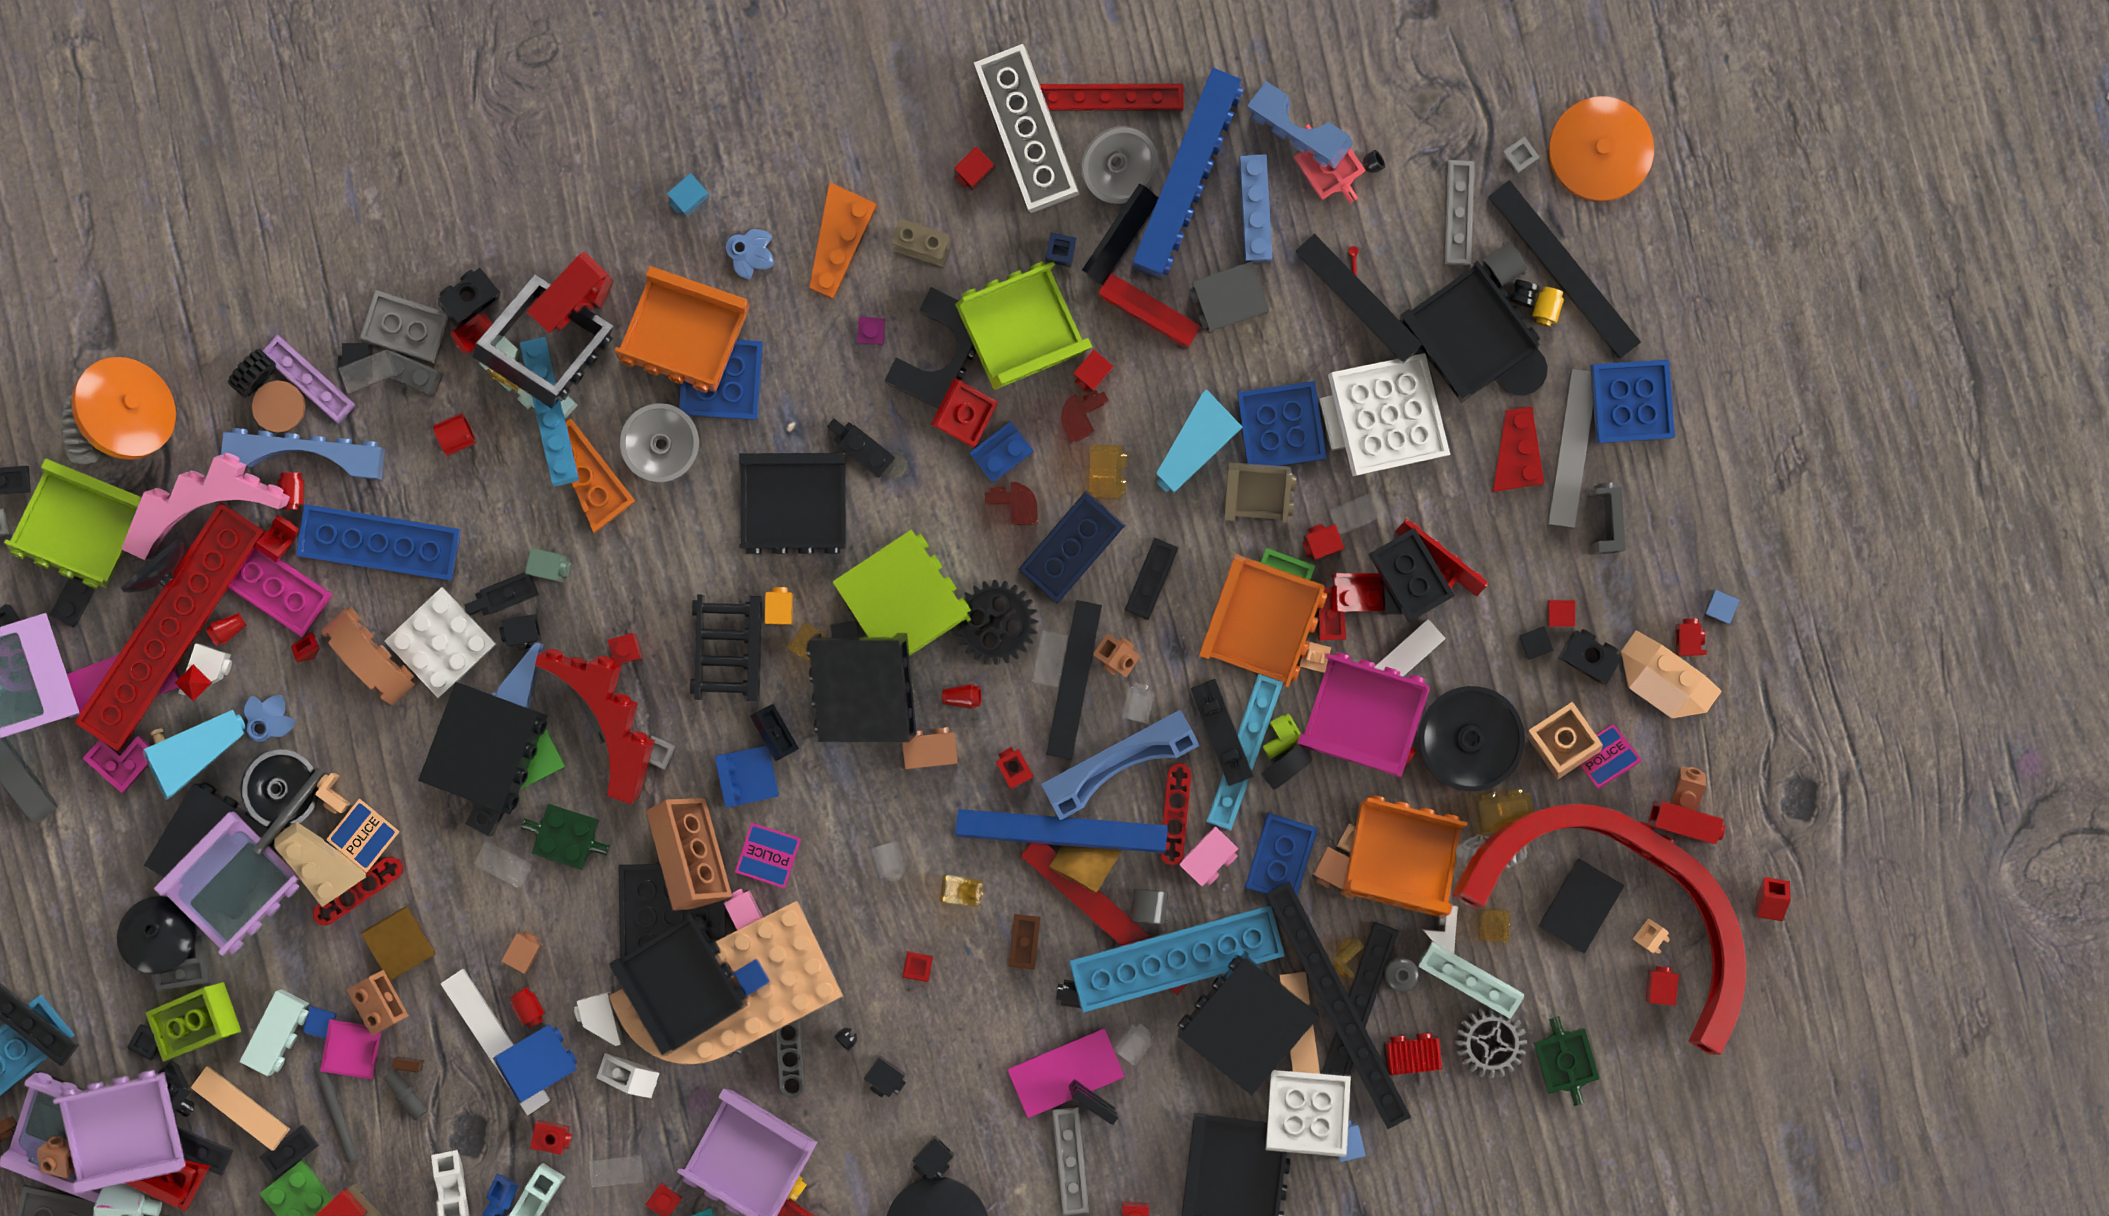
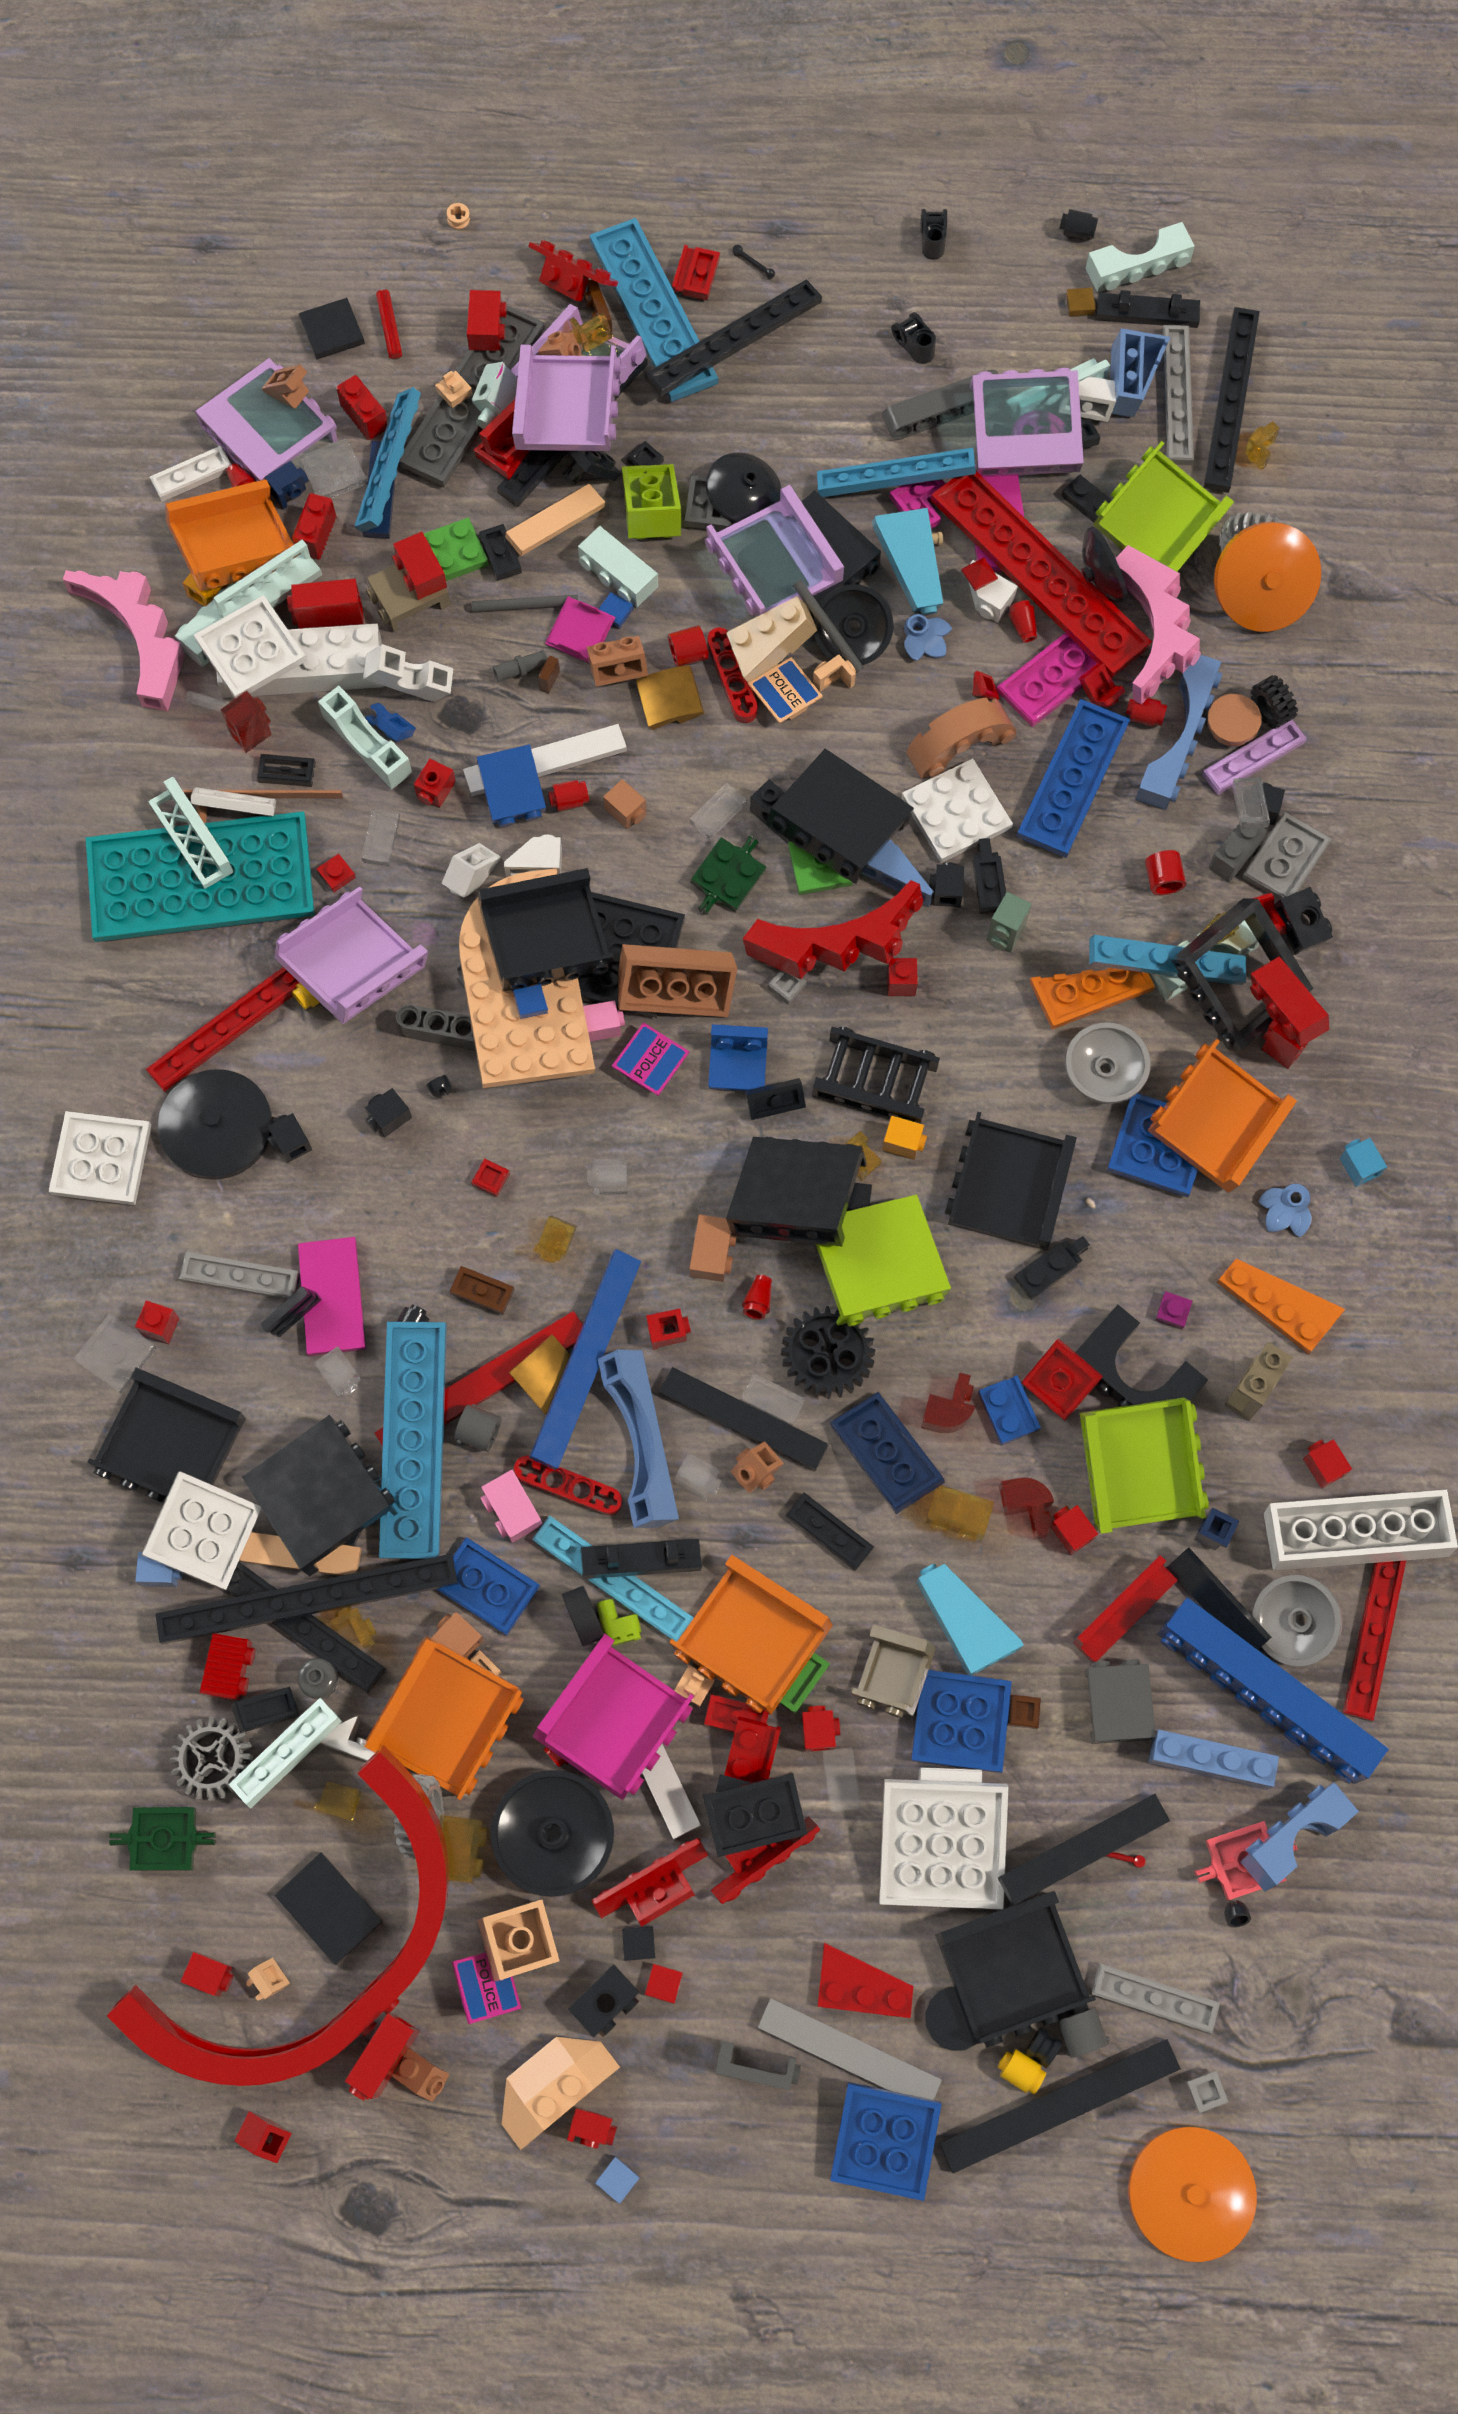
camera: 105 degrees right, 15 degrees down
(27, 1133) = (591, 332): none -> clear yellow bracket
(101, 791) = (896, 472): none -> dark azure plate
(342, 940) = (688, 646): none -> red piece
(1257, 375) = (1024, 1711): none -> reddish brown tile
(1439, 1010) = (265, 1709): none -> black tile
(1490, 640) = (655, 1887): none -> red bracket

